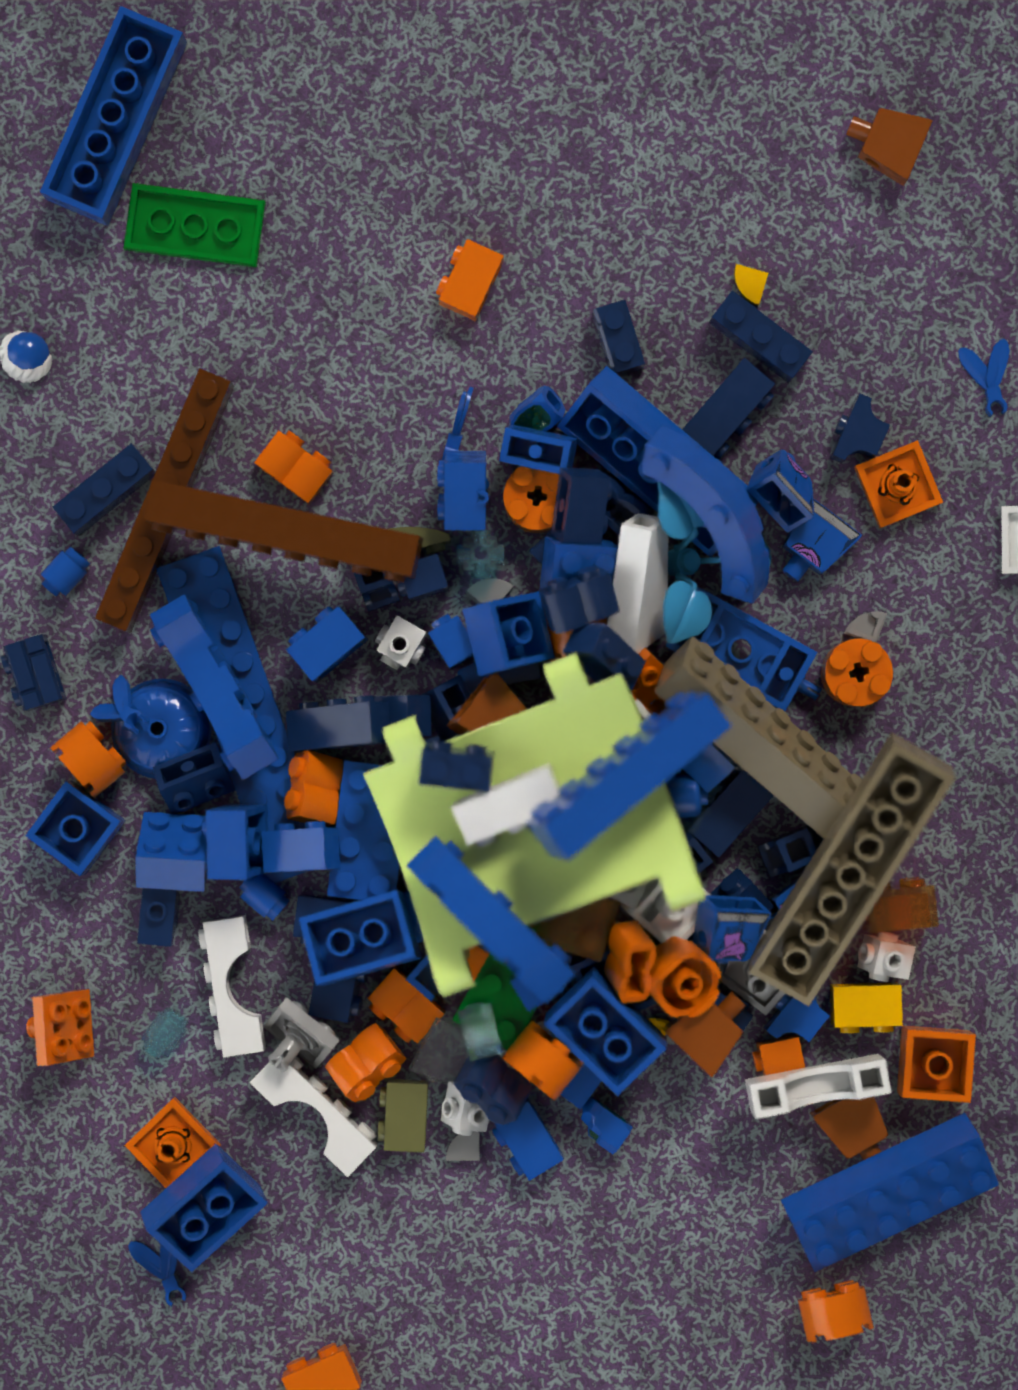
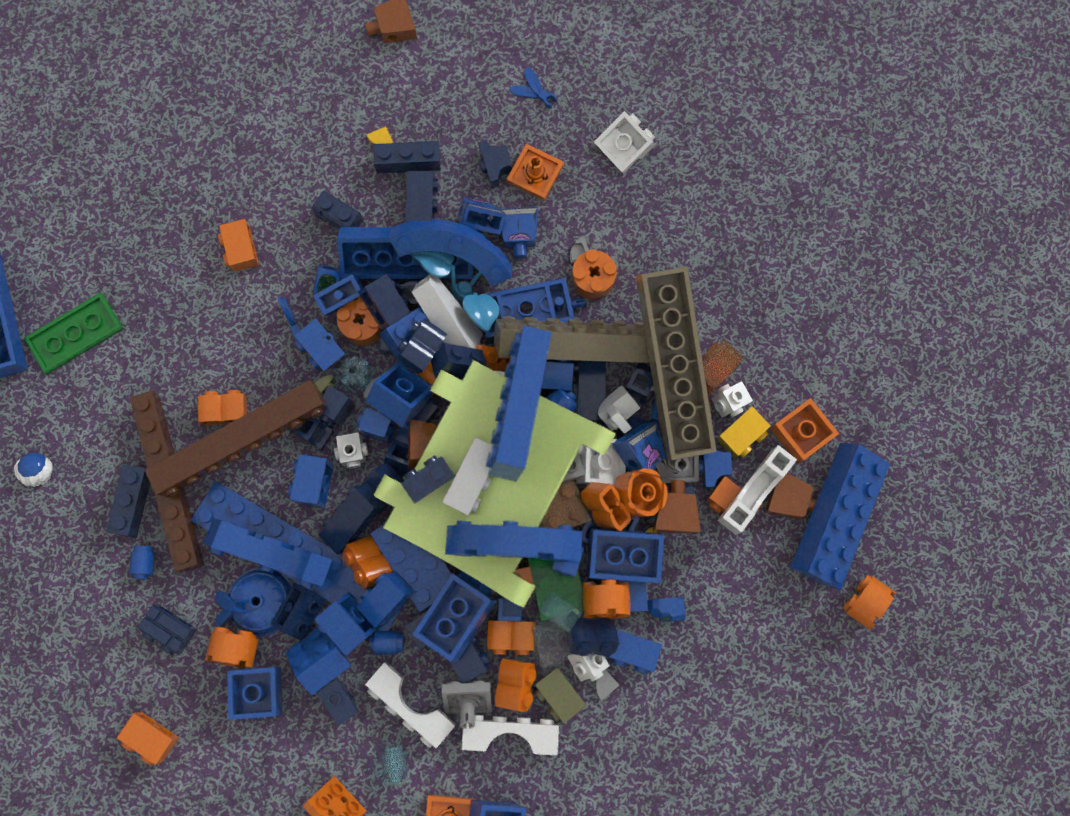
camera: 40 degrees left, 10 degrees down
(743, 857) = (617, 409): none -> white brick

